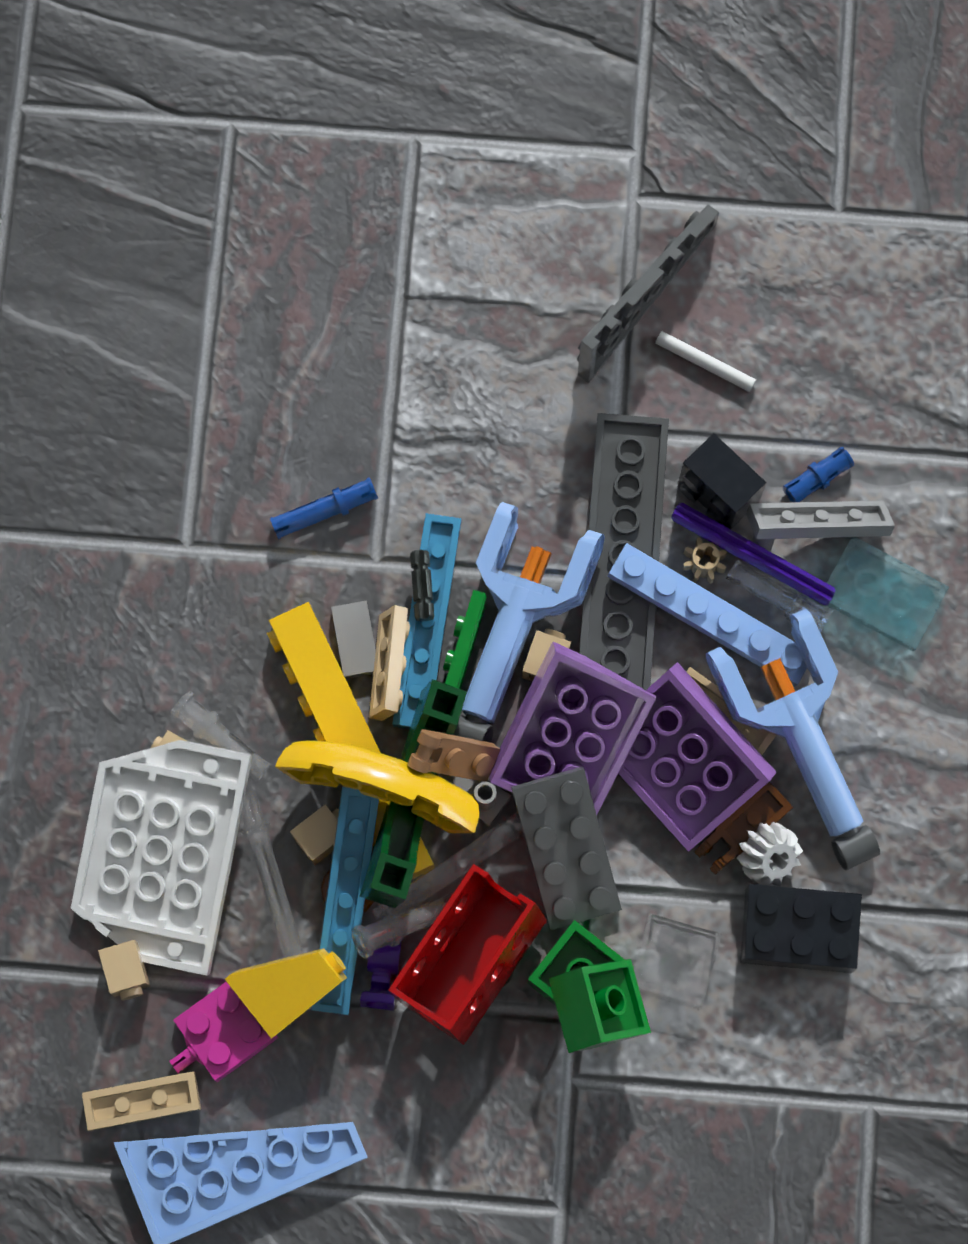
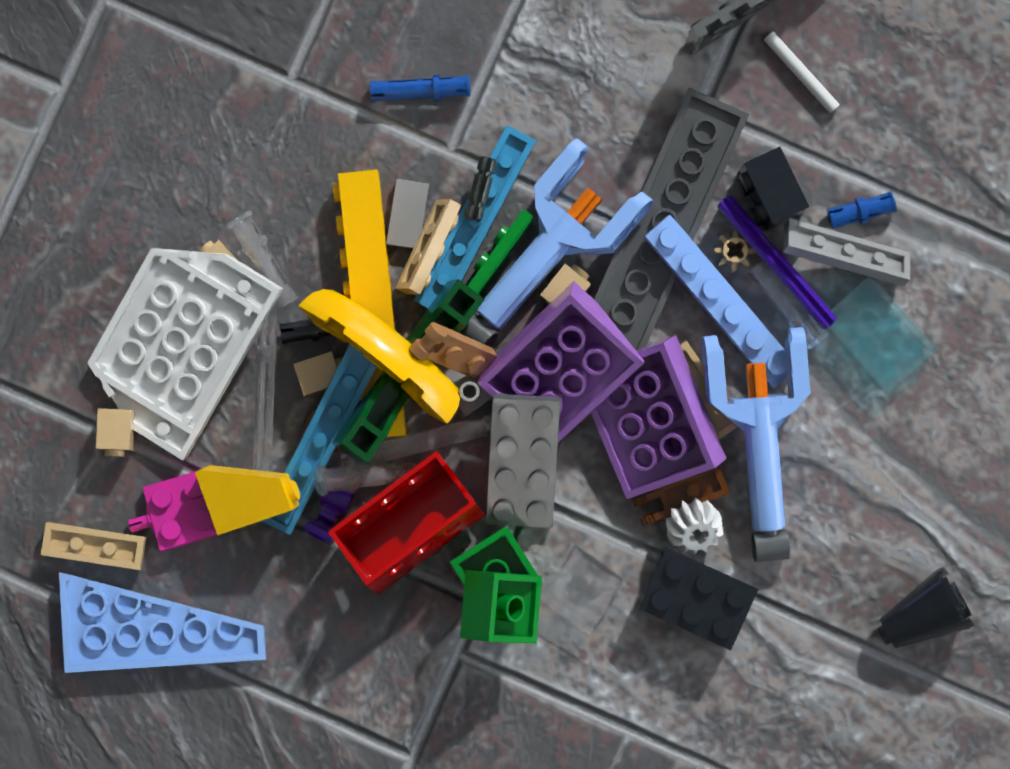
camera: 20 degrees right, 10 degrees up
(288, 795) = (301, 331): none -> black pin

